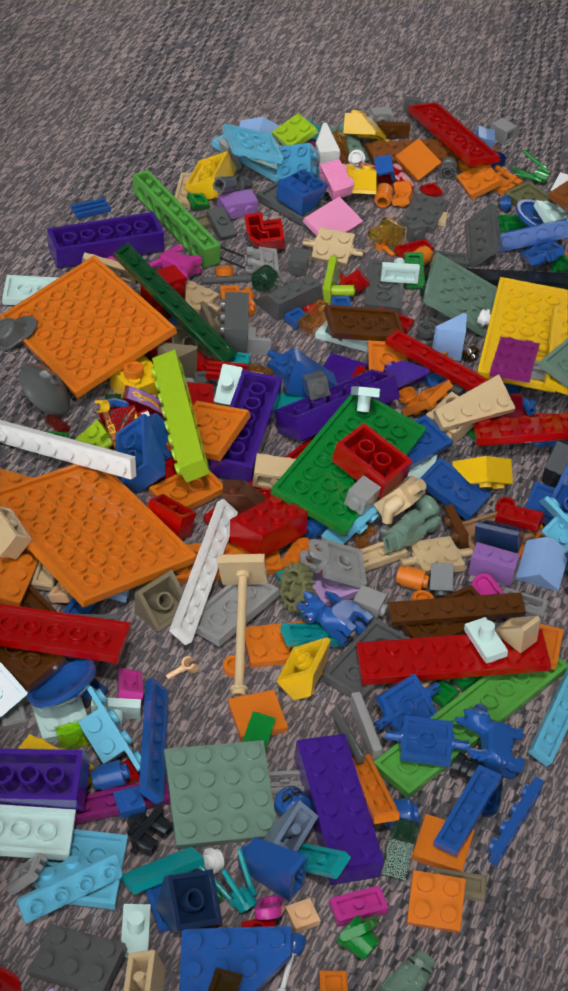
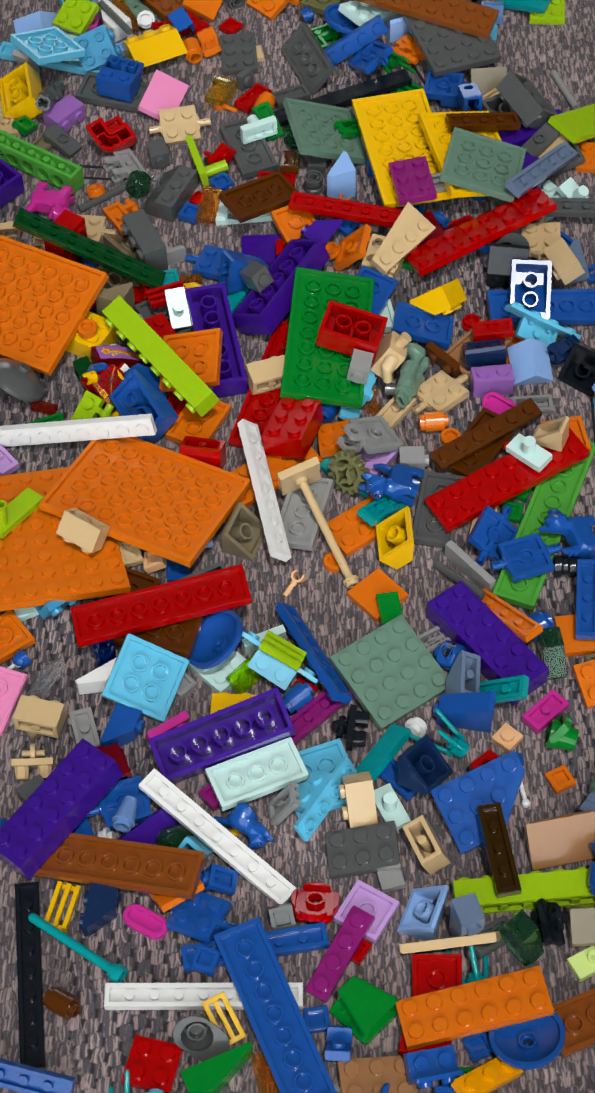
camera: 20 degrees left, 10 degrees up
(103, 904) = (359, 799): none -> tan brick
(122, 720) = (282, 650): none -> lime tile
(129, 684) = (262, 615): dark pink plate -> none
(129, 802) = (325, 711): blue plate -> none
(241, 495) = (253, 409): copper slope -> none
(269, 907) = (483, 743): dark pink tile -> none
(326, 143) = (115, 17): none -> dark grey bar
(335, 175) = (144, 50): bright pink brick -> none
(364, 397) = (311, 270): light aqua tile -> none
(415, 310) = (290, 162): none -> reddish brown plate
(441, 578) = (458, 412): brick -> none
(470, 354) = (363, 186): dark brown plate -> none
(483, 300) = (344, 127): none -> green tile
(484, 317) = (358, 146): white plate -> none

